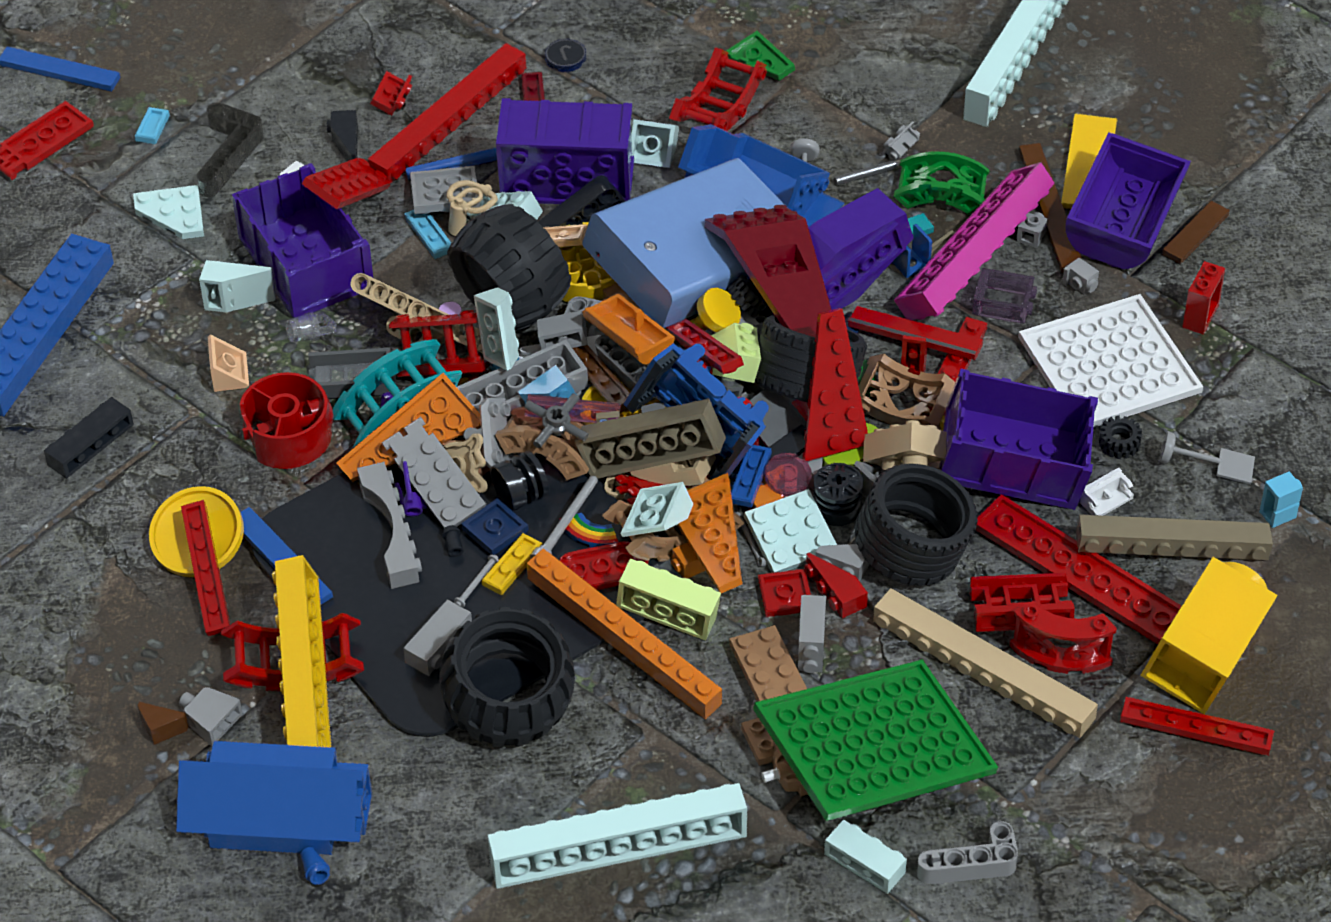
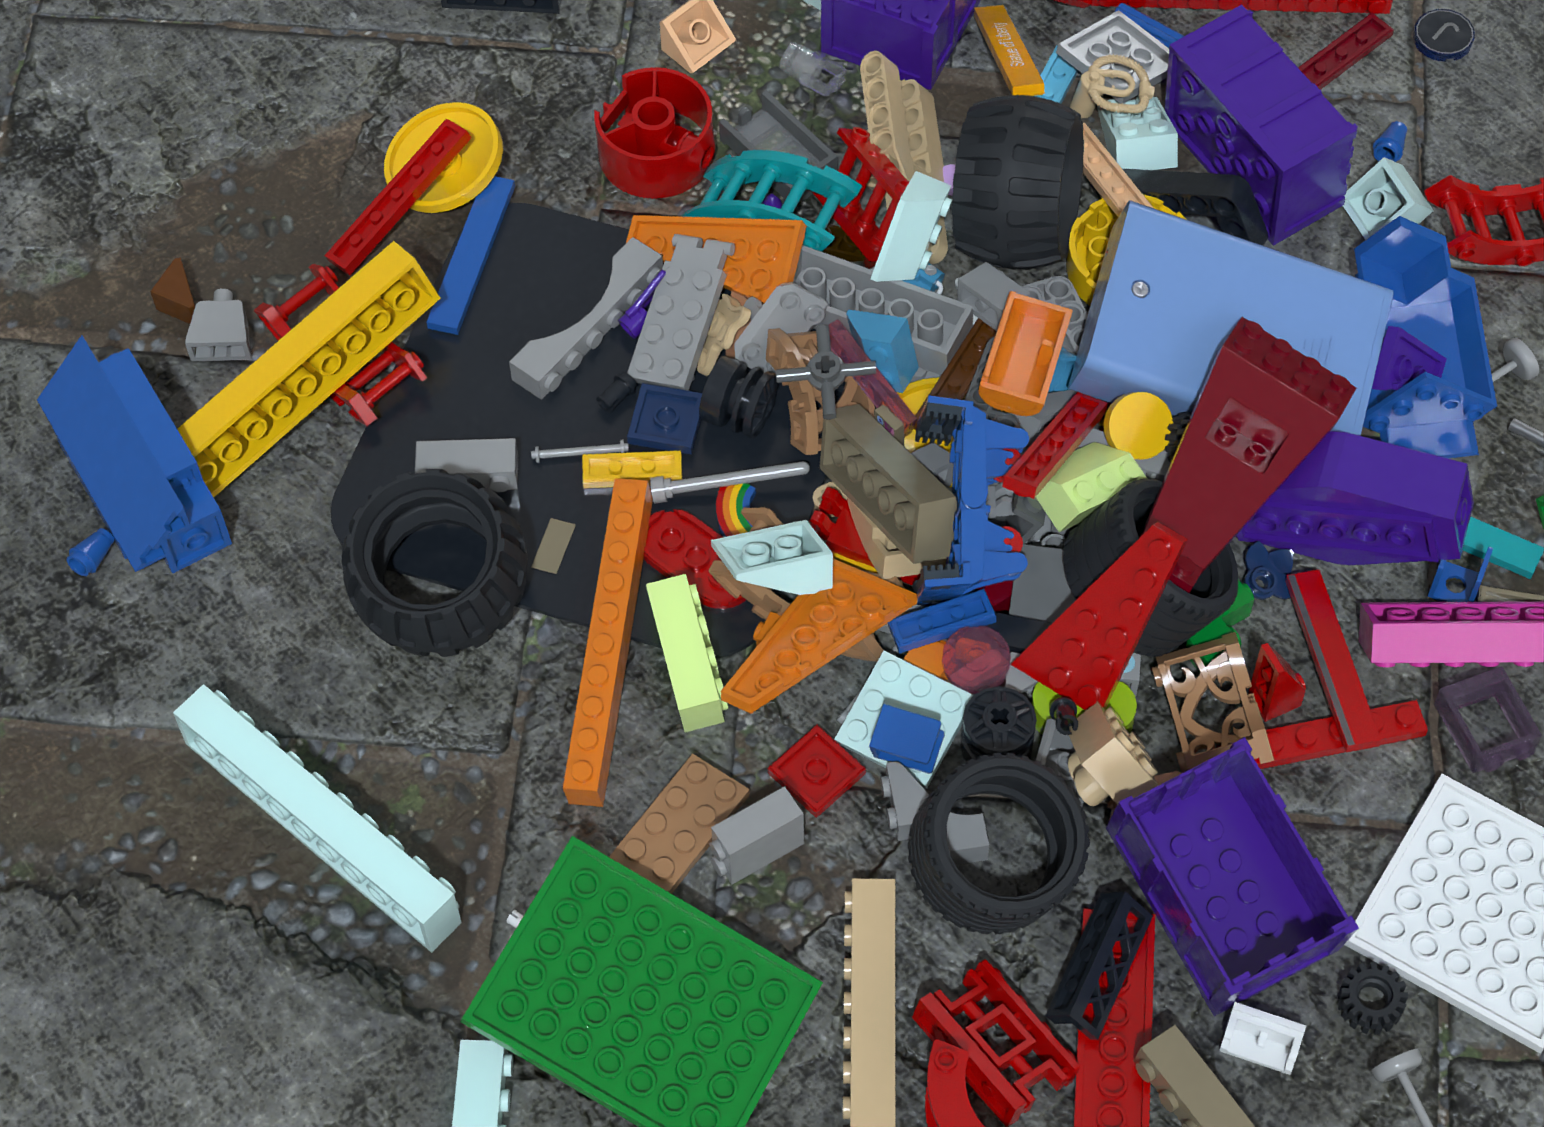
camera: 55 degrees right, 10 degrees up
(414, 221) = (1009, 51): none -> light orange tile
(776, 184) = (1404, 359): none -> dark purple wing
(812, 530) = (907, 739): none -> blue piece
(840, 587) = (860, 830): red slope -> none
(857, 453) = (1064, 713): none -> black pin
(1012, 530) = (1095, 956): none -> black fence

